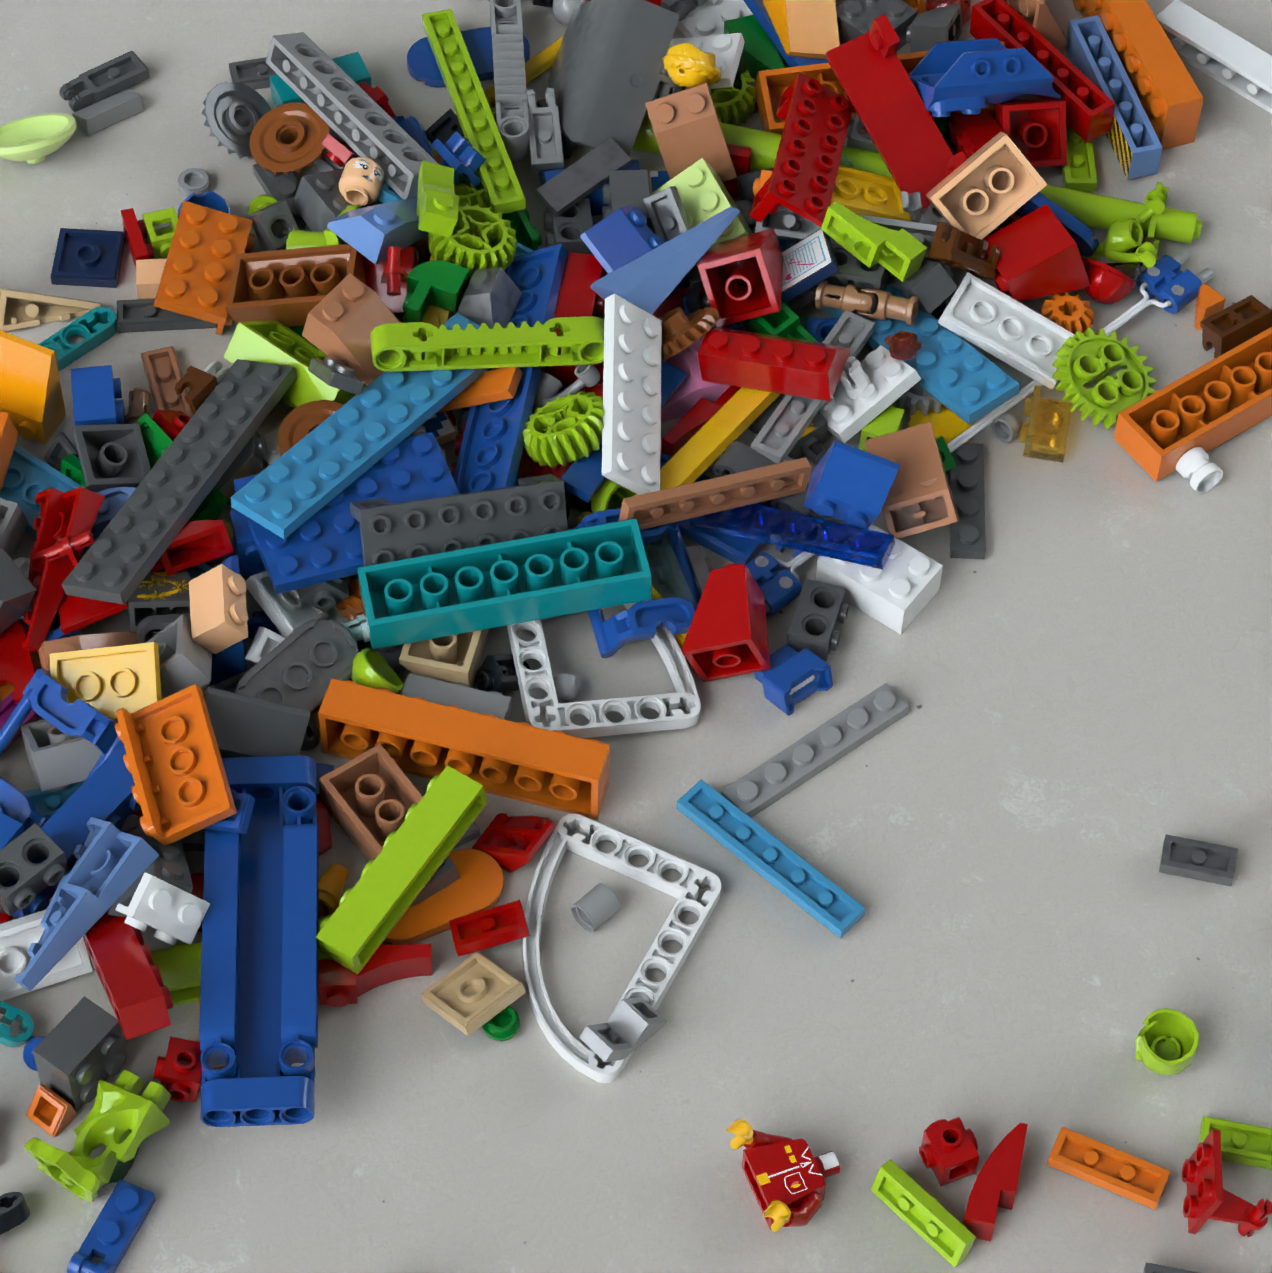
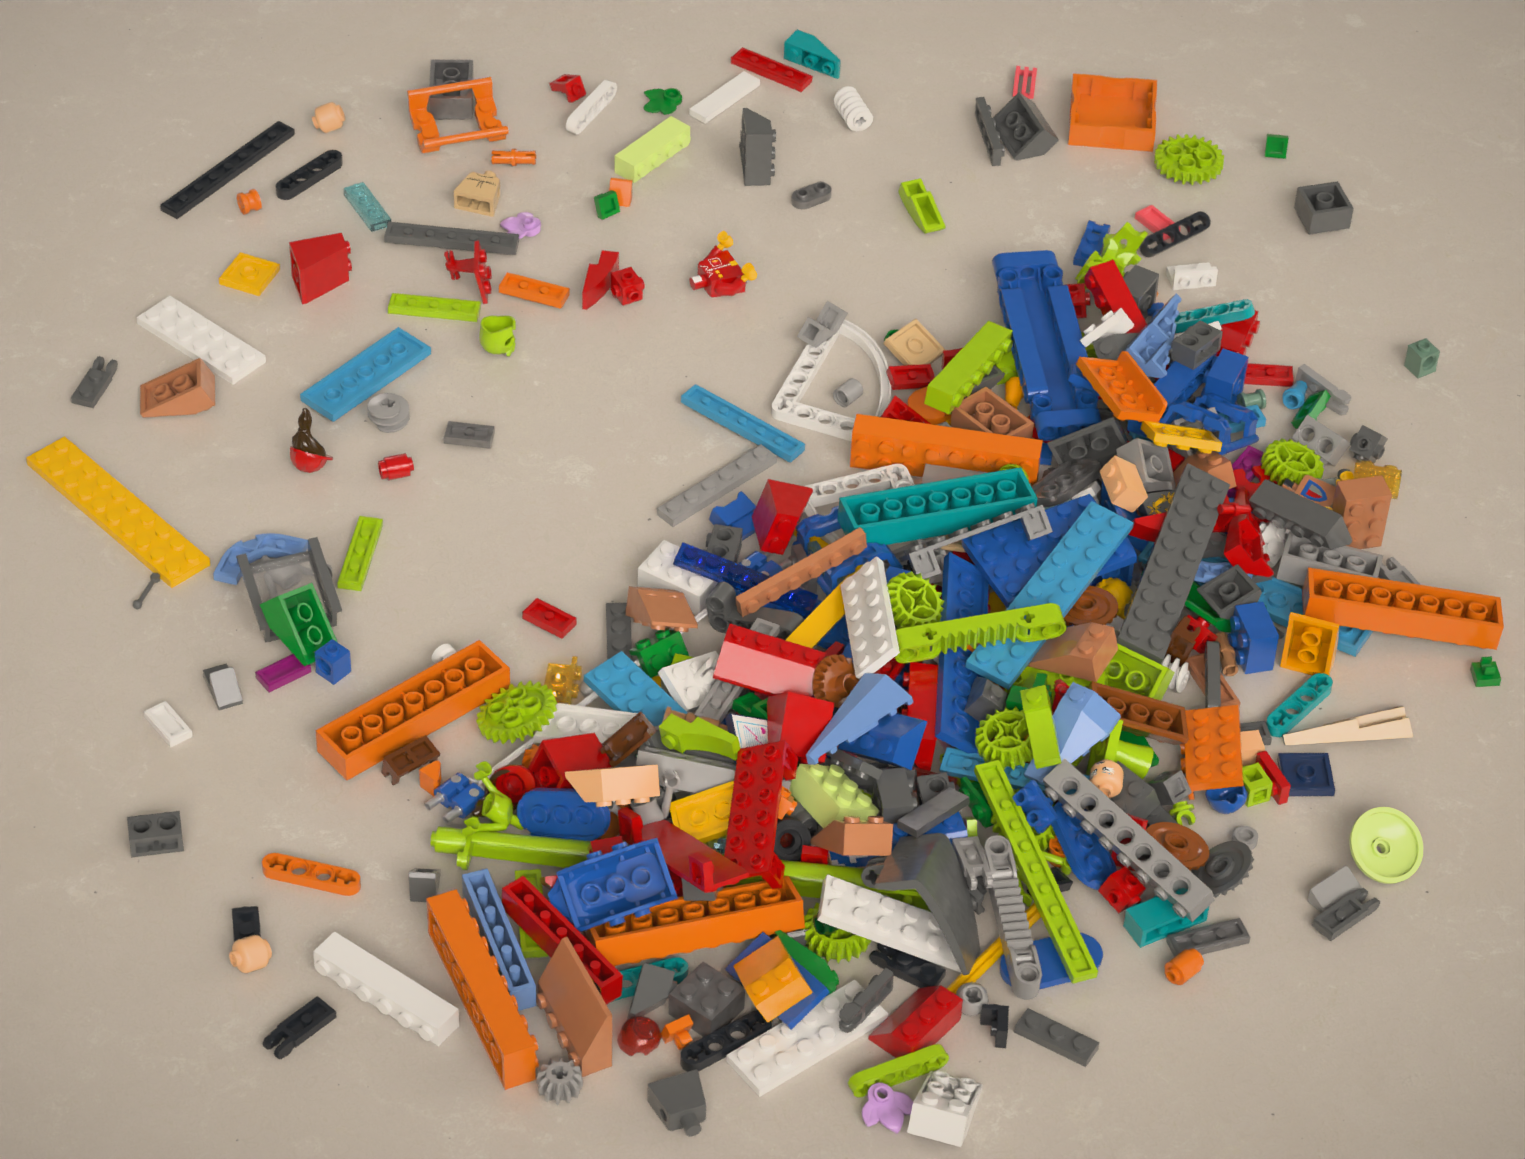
camera: 175 degrees right, 10 degrees down
(172, 362) = (1212, 674): none -> dark grey beam
(321, 27) = (1184, 966): none -> orange brick
(336, 374) = (1082, 608): flat silver plate -> none
(533, 208) = (971, 826): none -> lime tile
(691, 66) = (858, 859): yellow hair -> none
(850, 485) = (708, 574): blue slope -> none
(903, 345) = (671, 697): clear red plate -> none
(923, 1213) = (642, 265): lime plate -> none
(1064, 531) = (549, 618): none -> red plate
(1205, 178) = (423, 884): none -> dark grey slope

